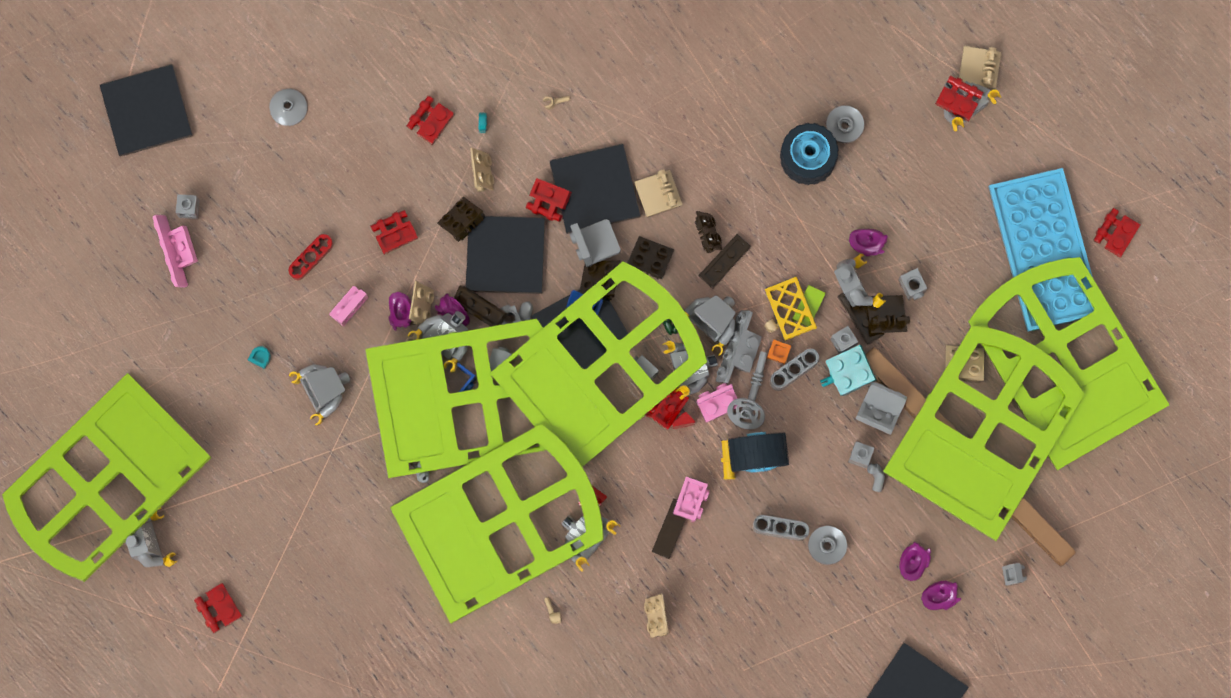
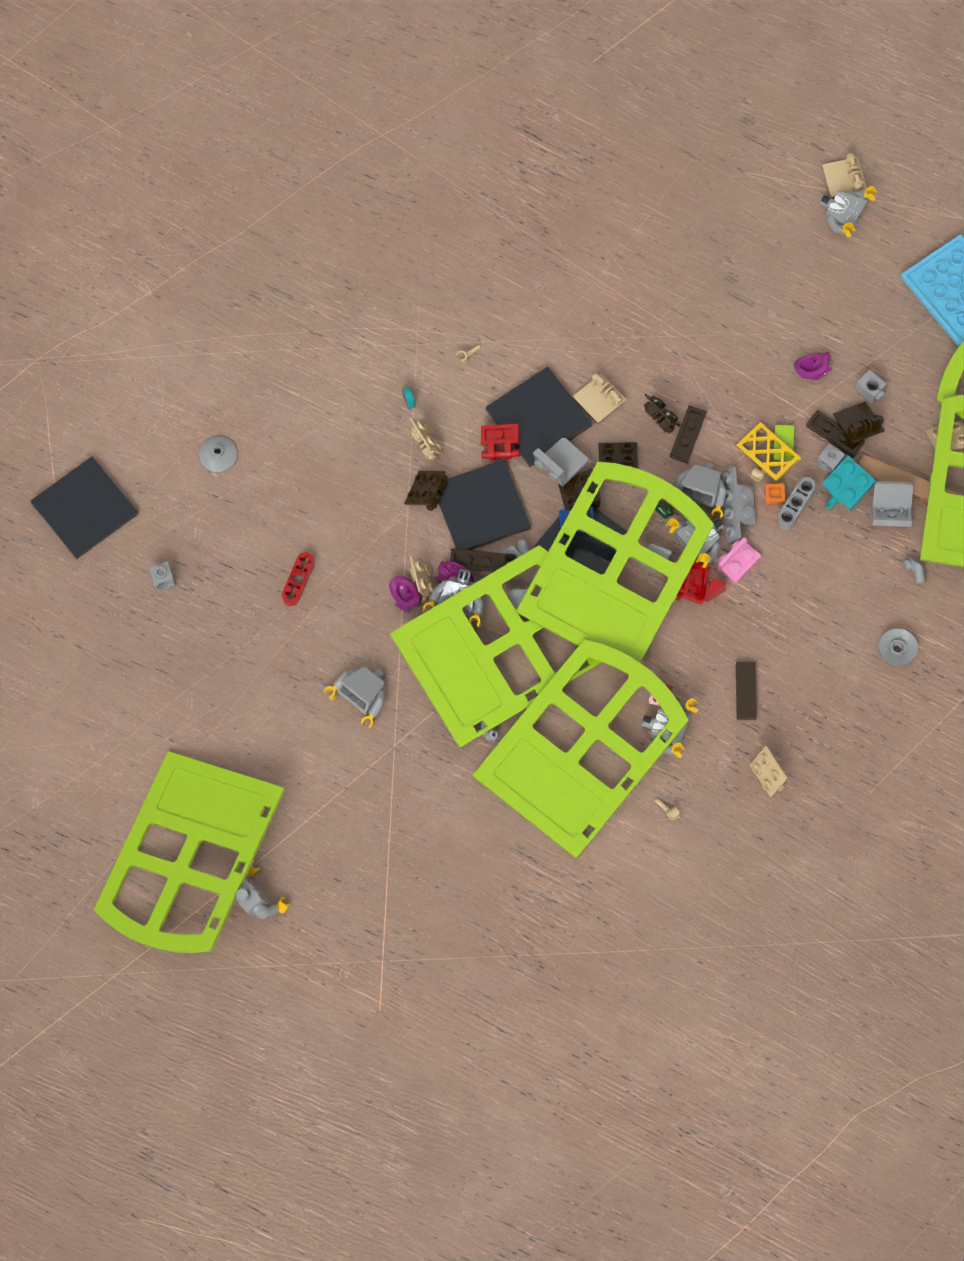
camera: 20 degrees left, 10 degrees down
(176, 248) = (168, 618): bright pink bracket -> none
(223, 604) = (351, 927): red plate -> none
(260, 356) = (288, 687): teal tile -> none
(348, 305) = (354, 607): bright pink bracket -> none
(397, 236) = (371, 530): red plate -> none
(434, 124) = (363, 416): red plate -> none
(469, 384) = (497, 625): blue bracket -> none
(690, 499) = (753, 655): bright pink bracket -> none
(728, 474) = (771, 607): yellow pin -> none
(751, 405) = (769, 551): light grey dish -> none
(758, 452) = (797, 585): black wheel -> none
(771, 527) = (841, 655): light grey beam -> none
(811, 139) = (724, 308): wheel -> none
(847, 115) = (745, 264): light grey dish -> none
(852, 285) = (817, 406): light grey torso -> none
(861, 455) = (892, 554): light grey brick -> none
(957, 103) = (838, 212): red plate -> none

